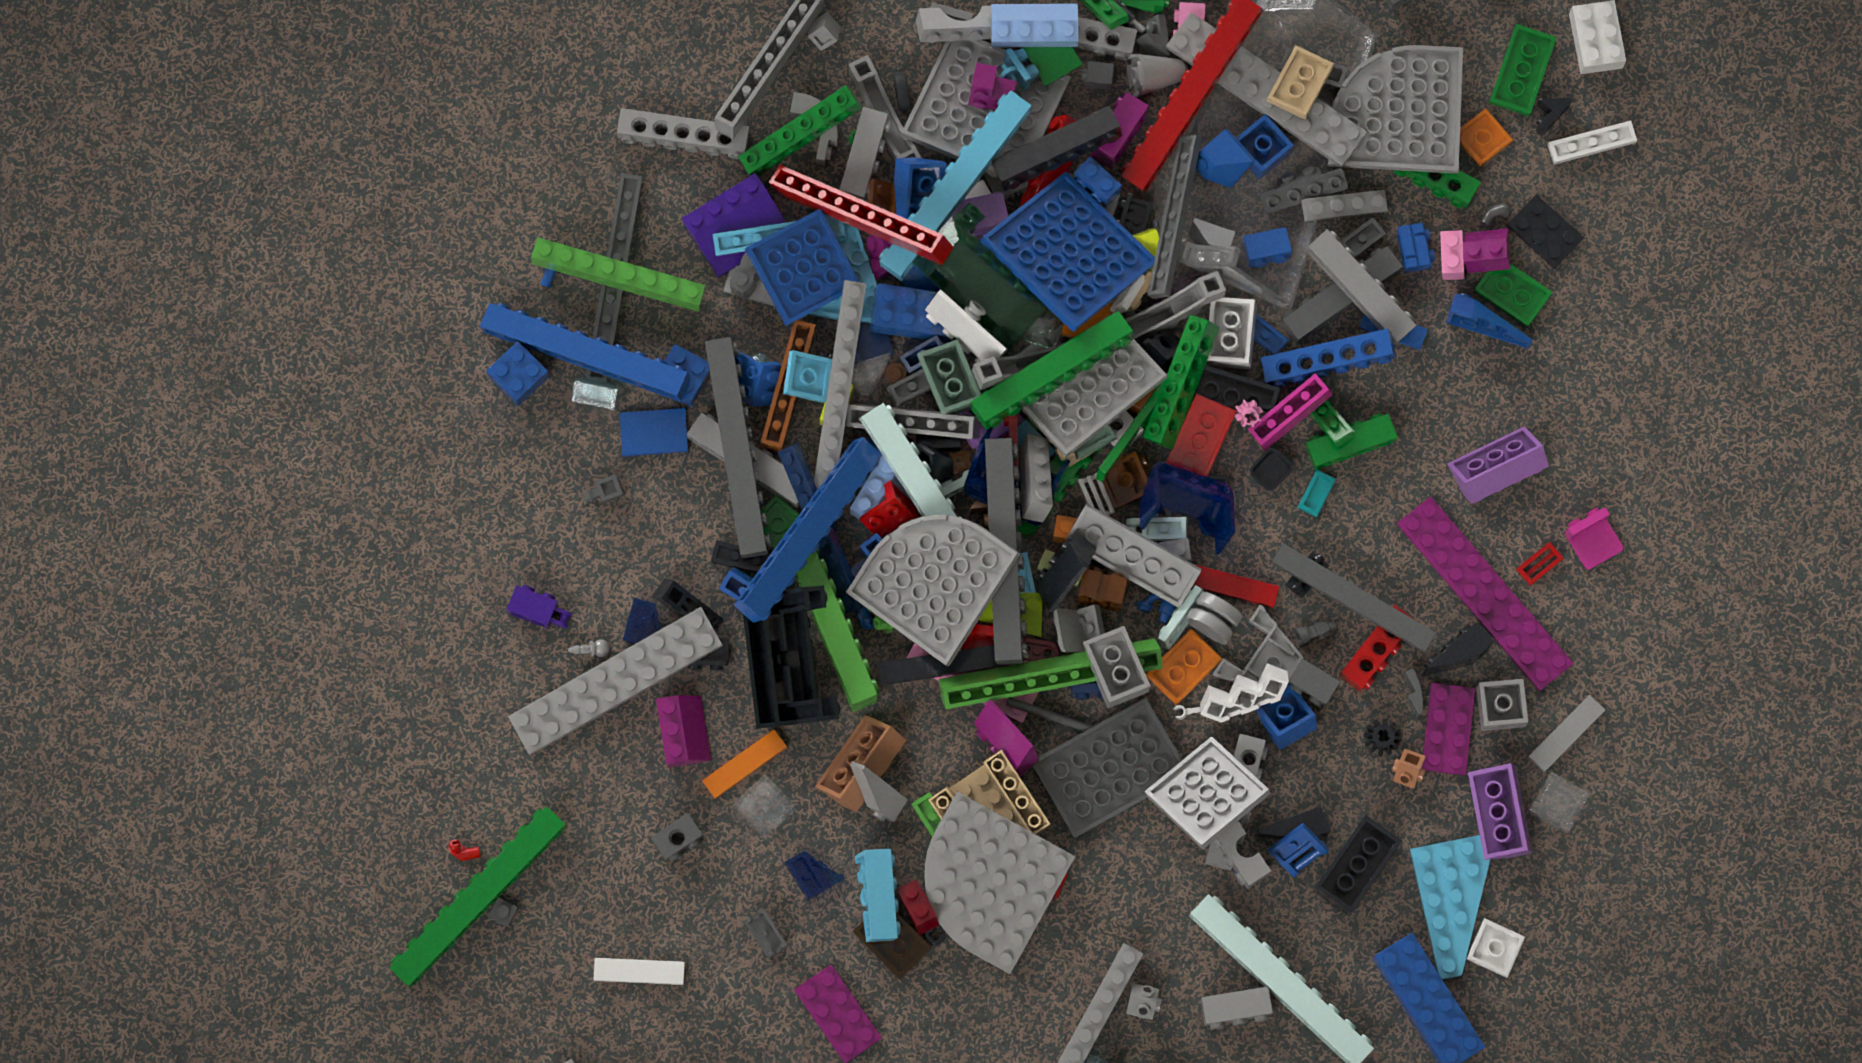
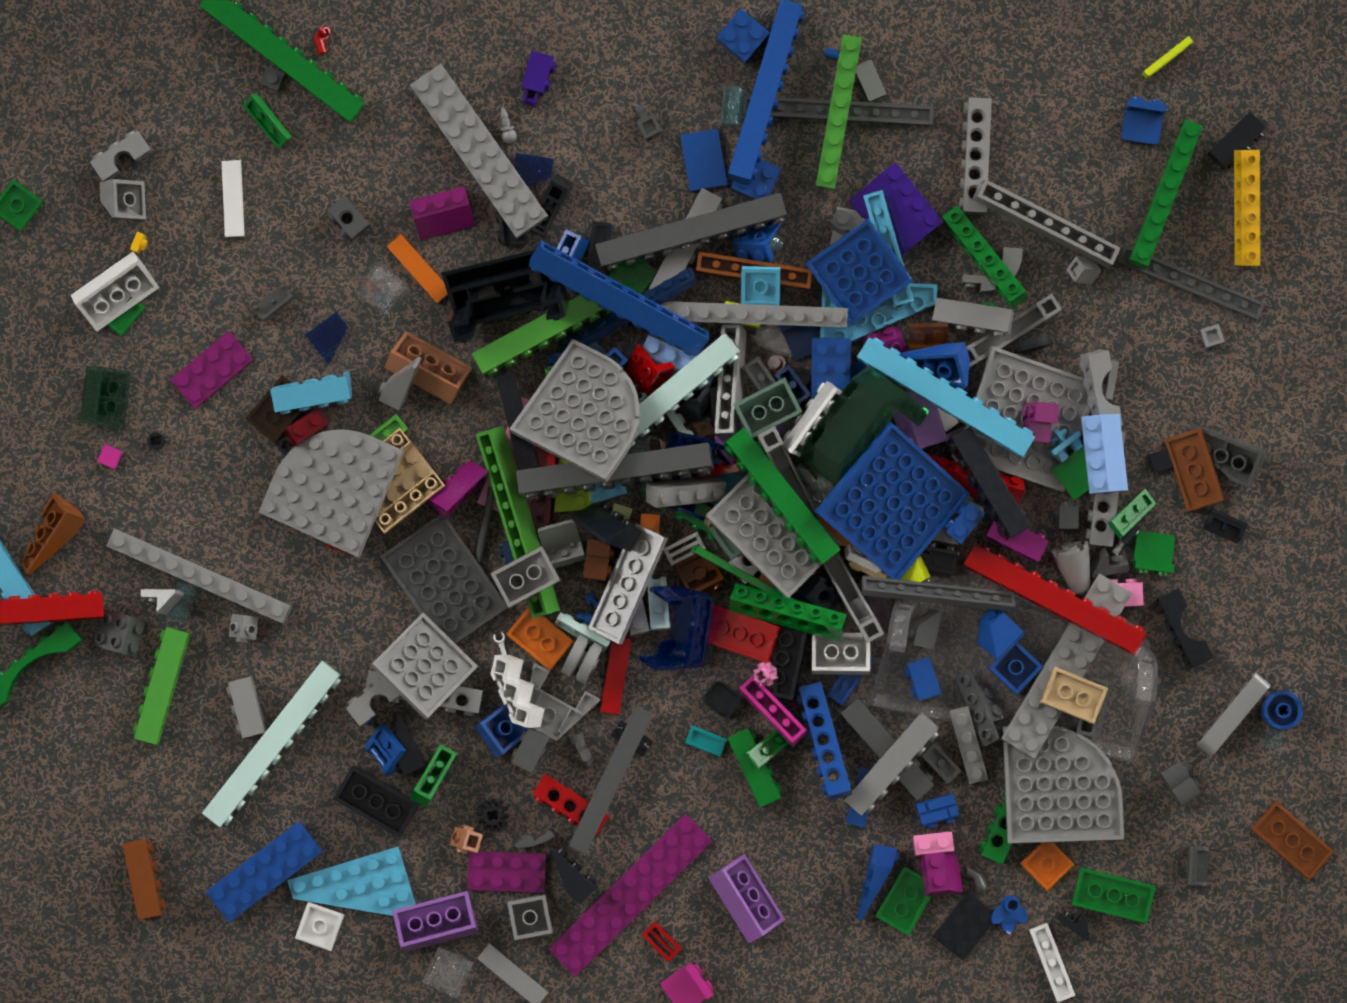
camera: 85 degrees right, 10 degrees up
(552, 922) = (267, 121): none -> green plate
(586, 239) = (870, 81): none -> light grey tile
(861, 214) = (906, 316): red brick -> none
(975, 310) = (822, 422): light grey bush -> none
(1333, 796) = (433, 775): none -> green brick
(1537, 185) = (1009, 916): none -> blue plate
(1597, 37) = (1150, 960): white brick -> none

